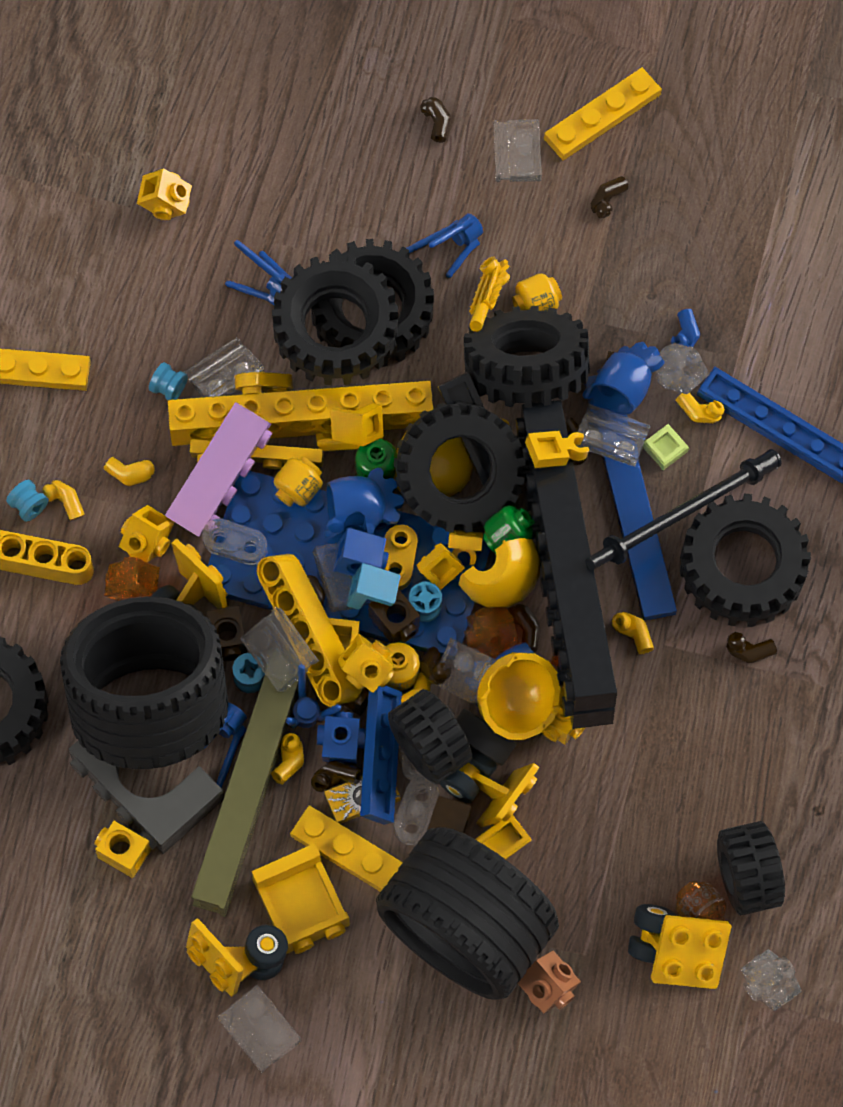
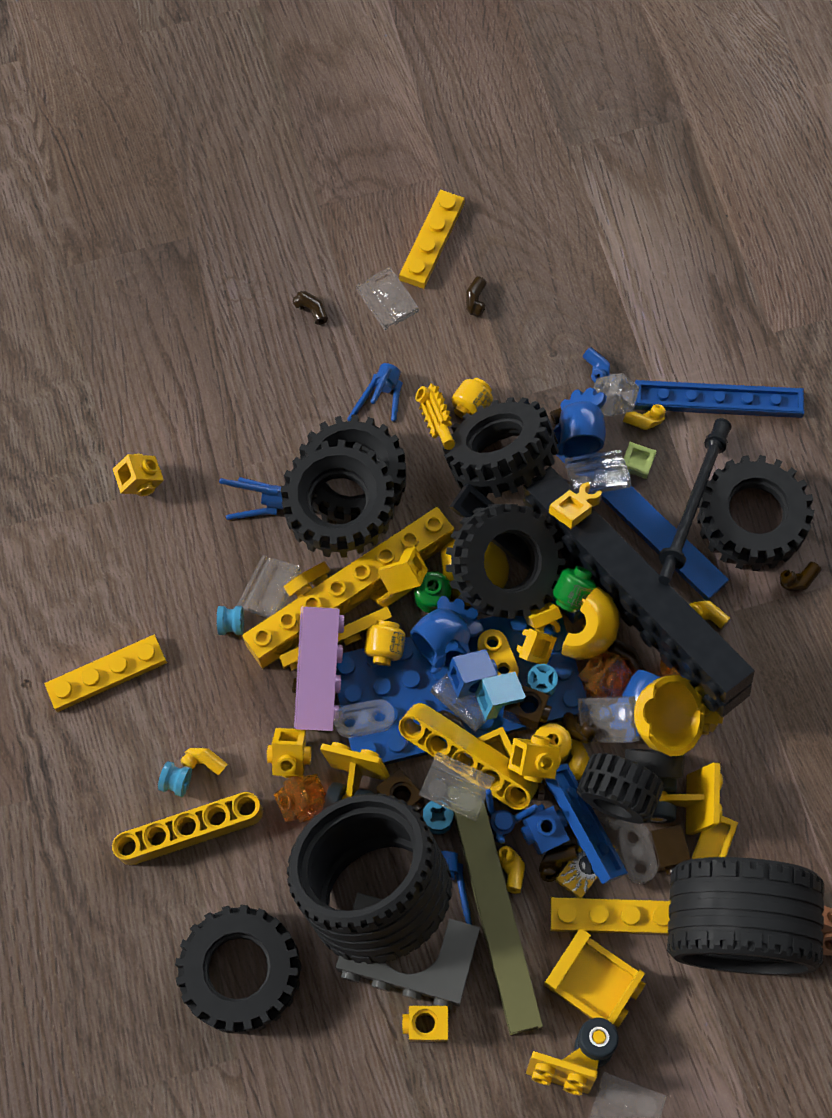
camera: 25 degrees left, 0 degrees up
(132, 473) = (244, 710): yellow arm -> none

